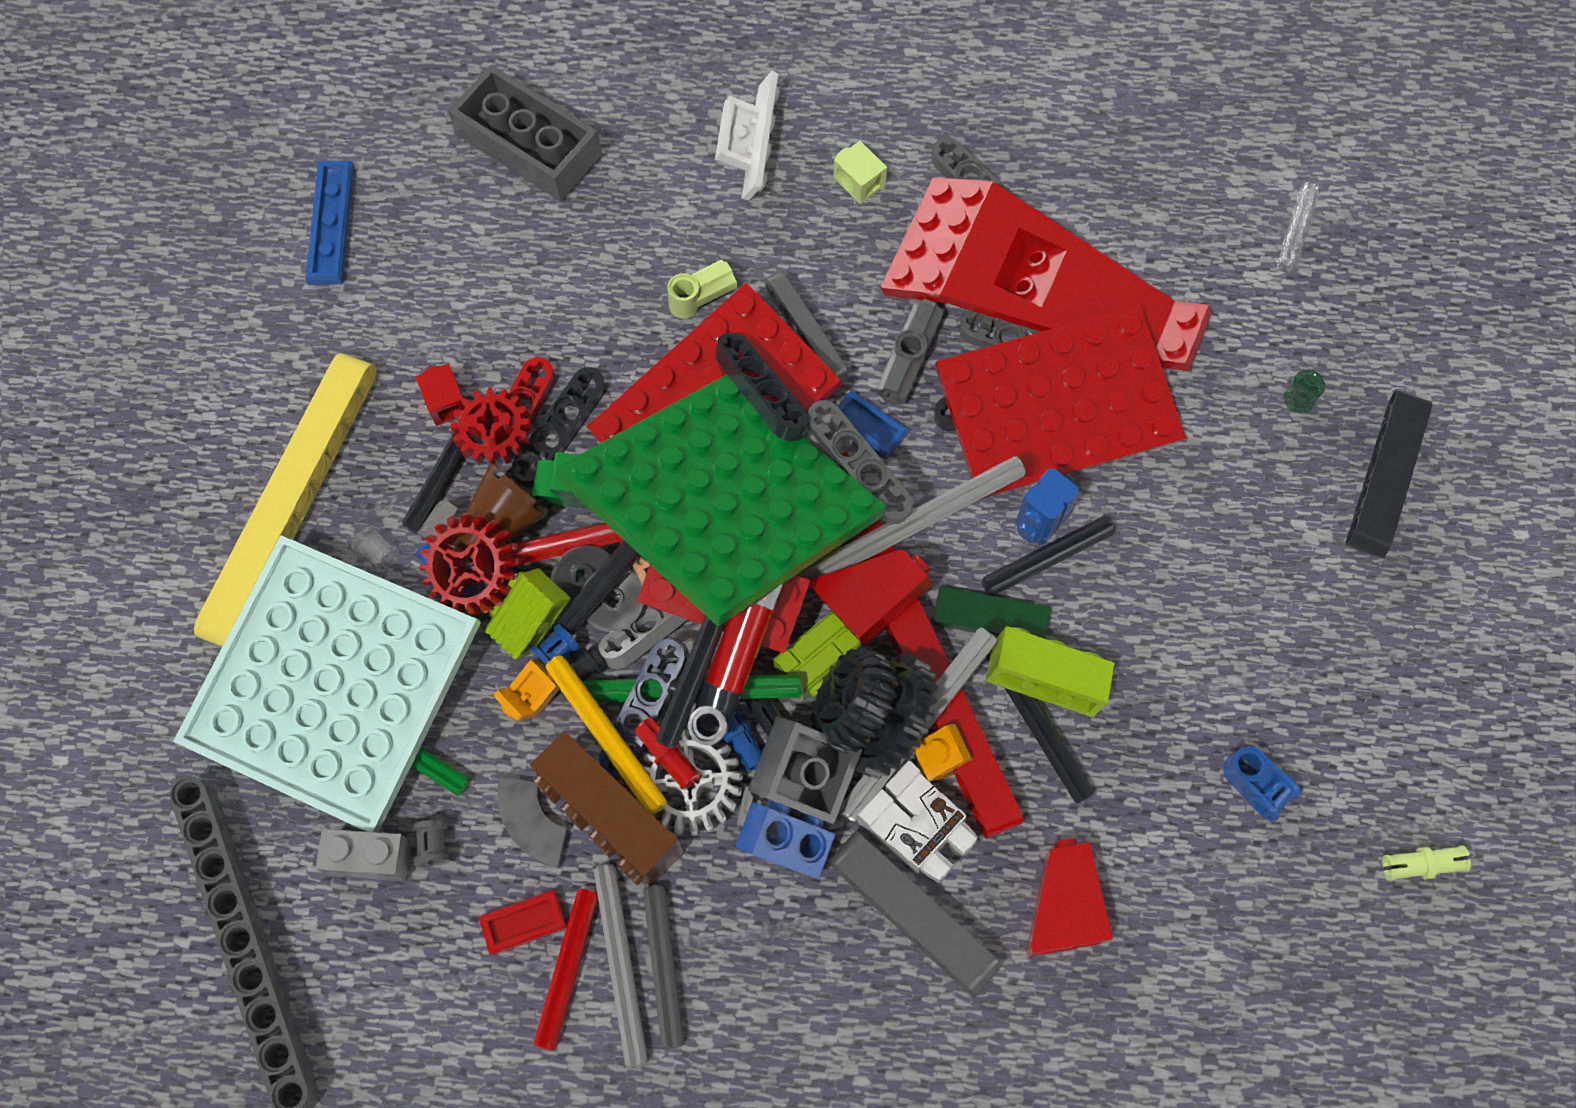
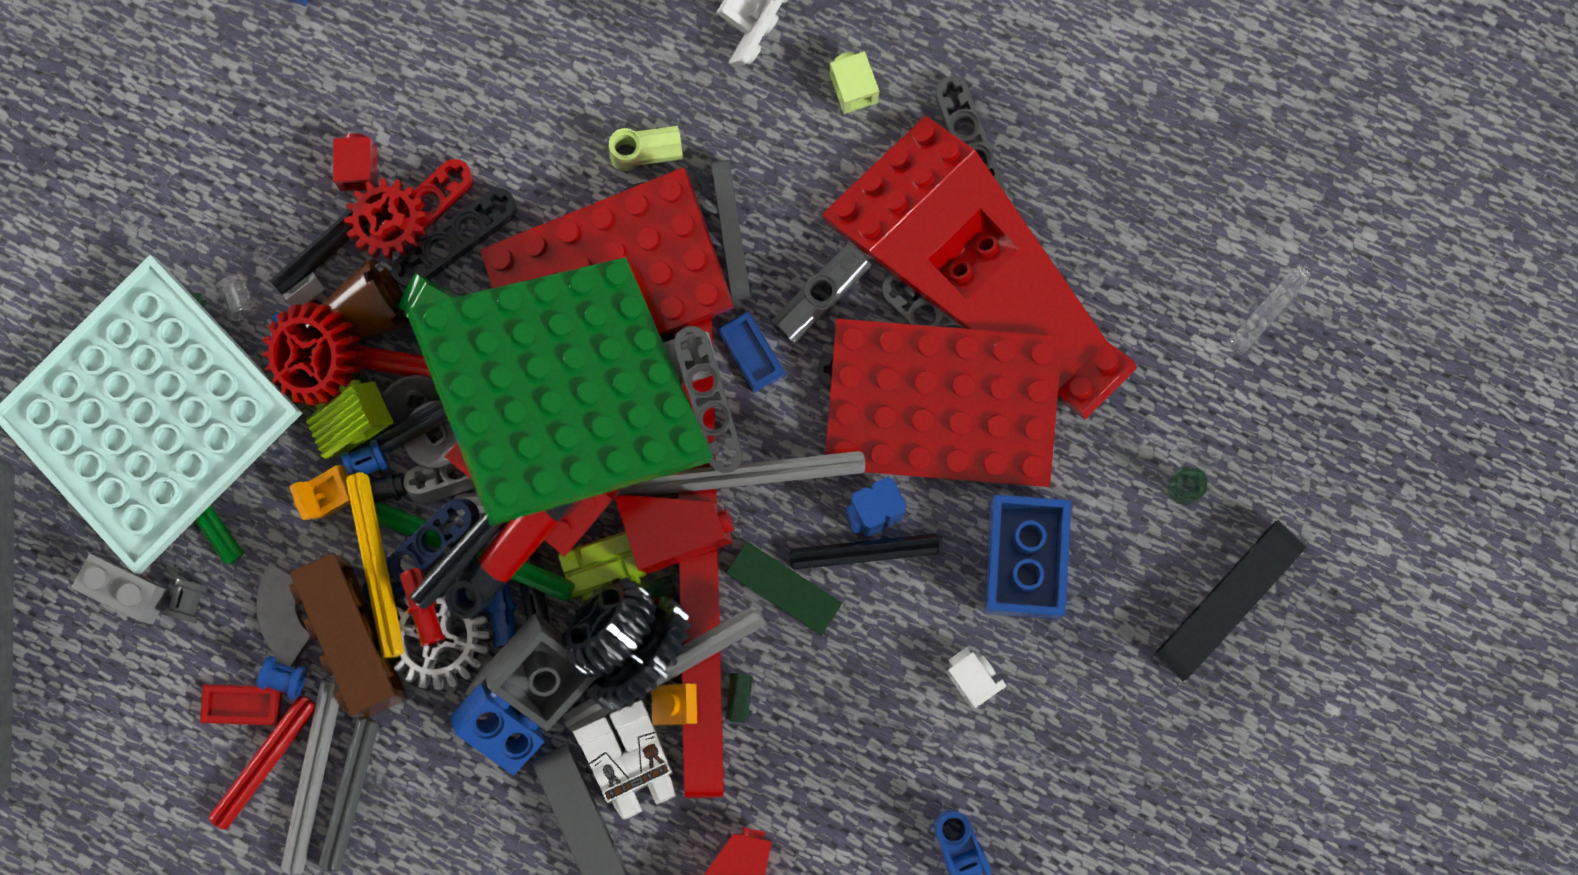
camera: 20 degrees right, 10 degrees up
(288, 491) = (179, 205): light yellow beam -> none
(555, 876) = (282, 677): none -> blue bush
(738, 355) = (652, 286): black beam -> none
(995, 728) = (738, 698): none -> clear green pin
(1050, 671) = (810, 667): lime brick -> none
(1051, 744) = (781, 703): black axle -> none
(1198, 501) = (1027, 557): none -> blue brick
(1199, 626) = (973, 677): none -> white brick

